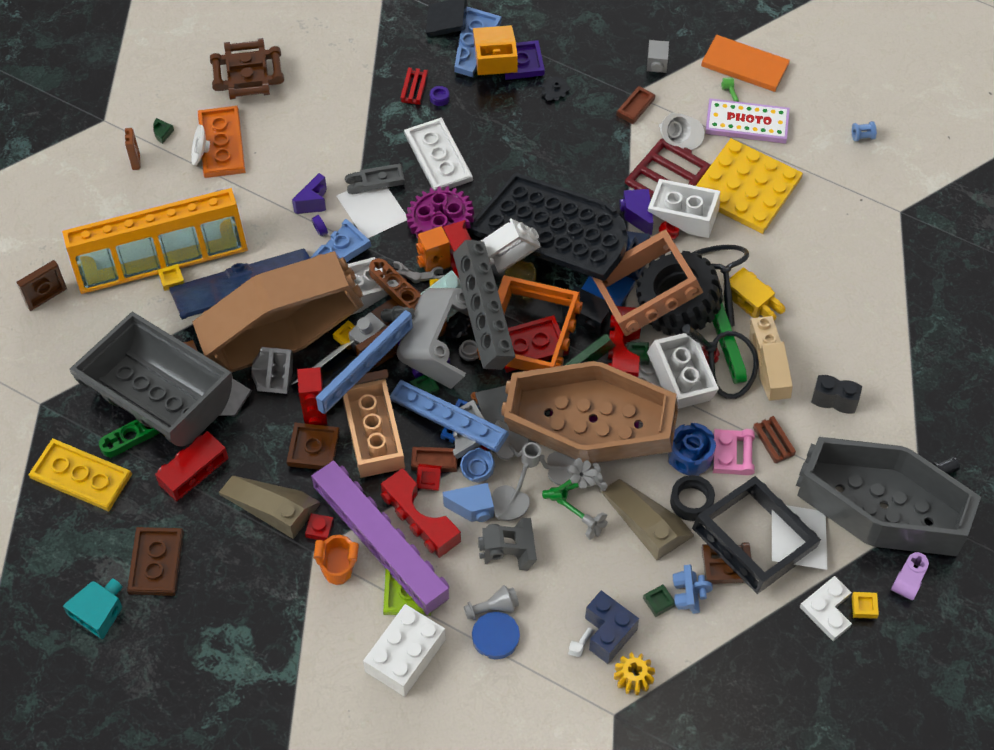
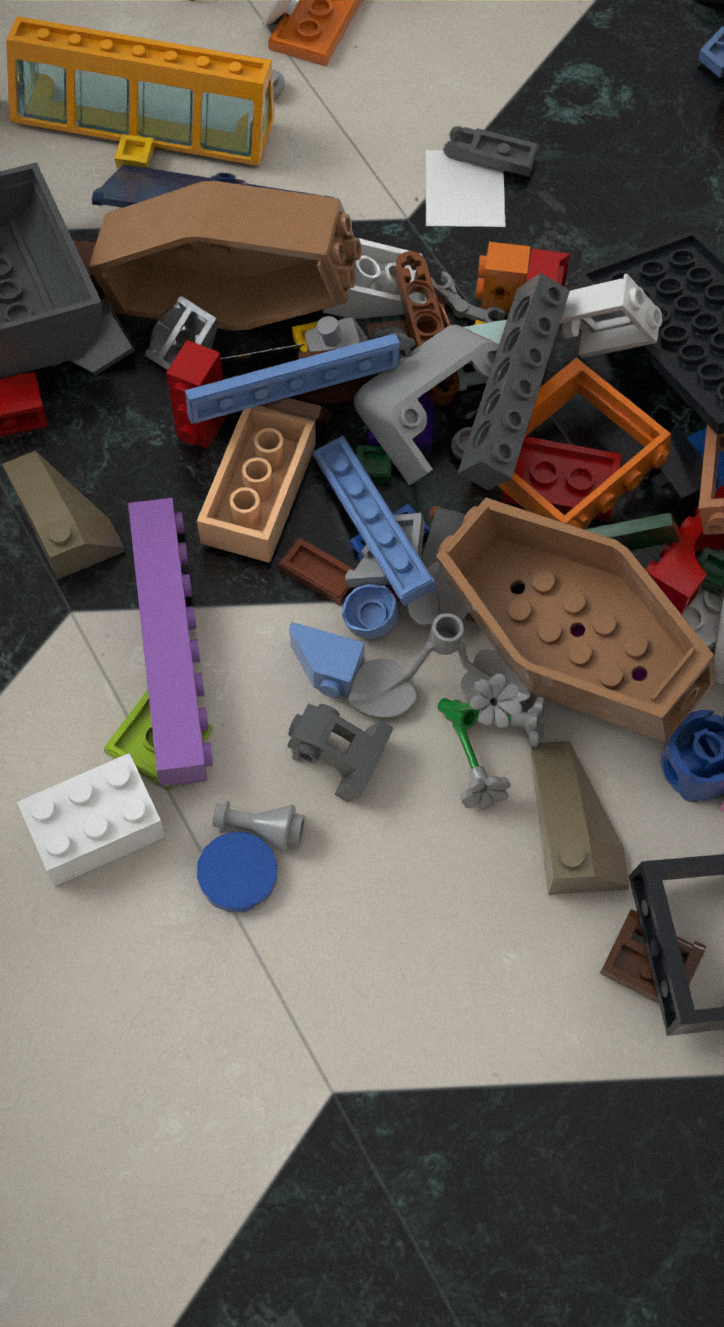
camera: 30 degrees right, 5 degrees up
(310, 197) = (384, 132): dark purple slope -> none
(312, 446) = (164, 465): reddish brown plate -> none
(319, 225) = (373, 176): dark purple tile -> none
(319, 527) = (99, 582): red plate -> none
(336, 558) = (87, 638): orange piece -> none
(346, 242) = (390, 218): medium blue wing -> none
(416, 74) = (623, 51): red tile -> none
(428, 477) = (291, 591): red plate -> none
(438, 155) = (601, 160): white tile -> none
(438, 210) = (567, 230): magenta gear -> none
(438, 533) = (252, 675): red arch -> none
(439, 95) = (656, 81): dark purple tile -> none
(522, 271) = (615, 370): clear yellow hair -> none
(576, 648) = (341, 960): white hand -> none
(614, 626) = (415, 961): dark blue brick -> none
(626, 677) = (382, 1050): yellow gear -> none
(659, 600) = (512, 957): dark green tile -> none
(690, 599) = (574, 970): medium blue hips -> none
(695, 482) = (670, 803): black tyre -> none

